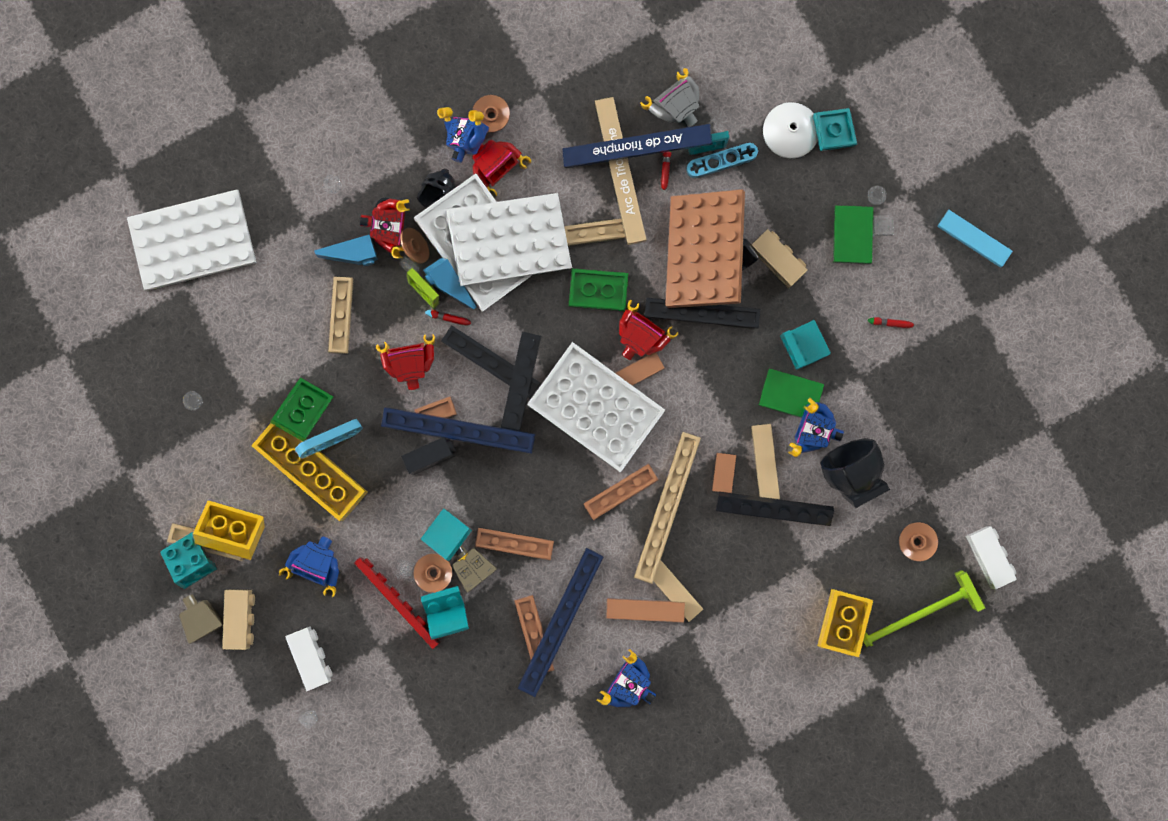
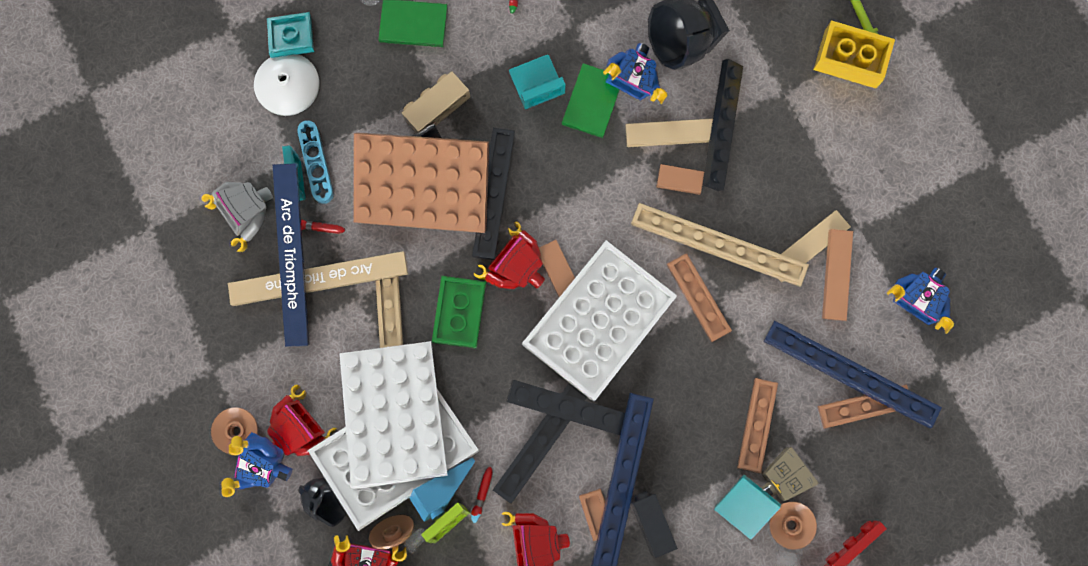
camera: 85 degrees left, 5 degrees down
(445, 612) = (843, 511): teal bracket -> none

